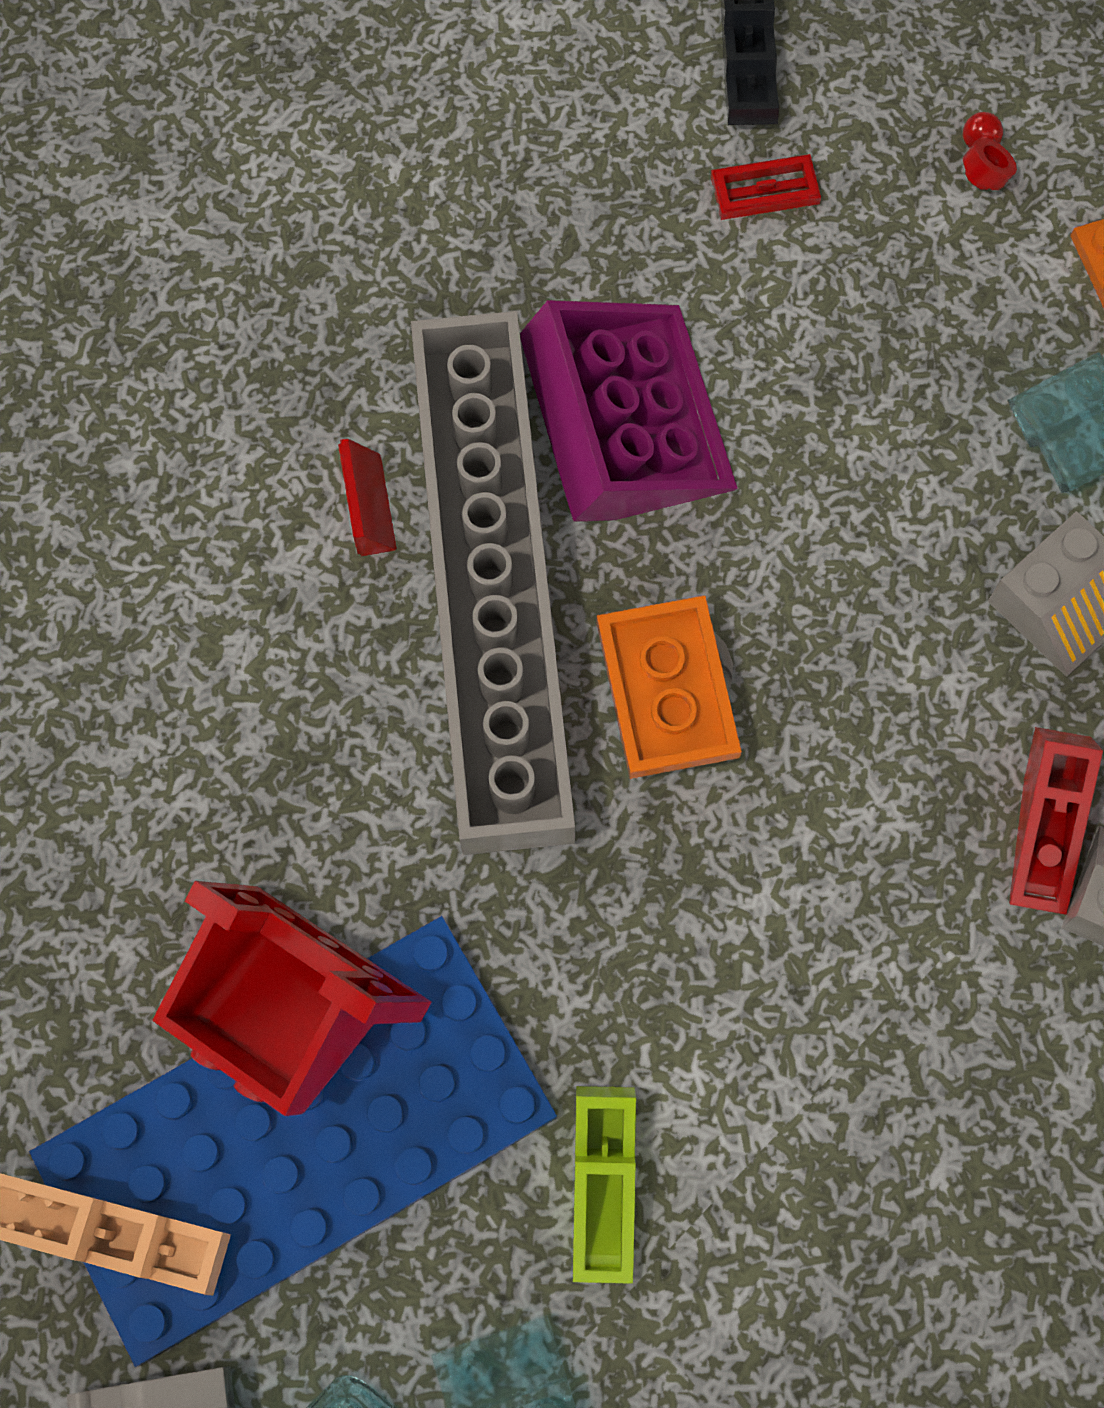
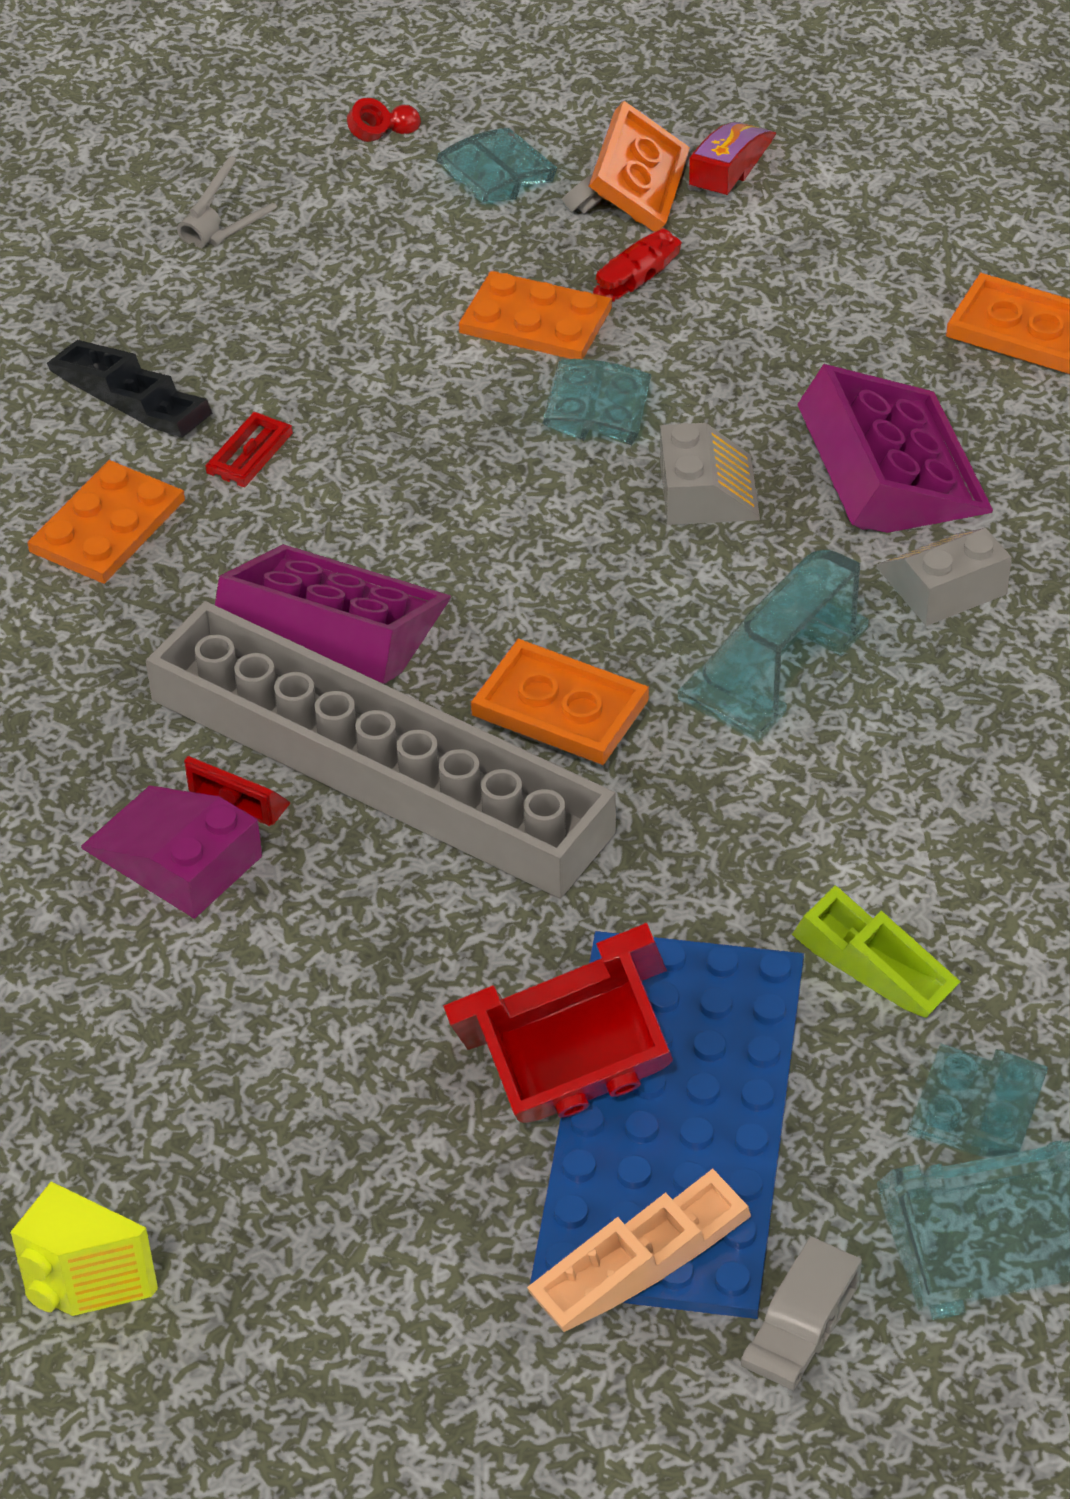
camera: 50 degrees left, 25 degrees down
(265, 503) = (179, 845): none -> magenta slope
(582, 148) = (106, 521): none -> orange plate
(896, 813) = (743, 675): none -> clear light blue windscreen
(986, 162) = (365, 333): red plate -> none
(1053, 818) = (877, 593): red slope -> none

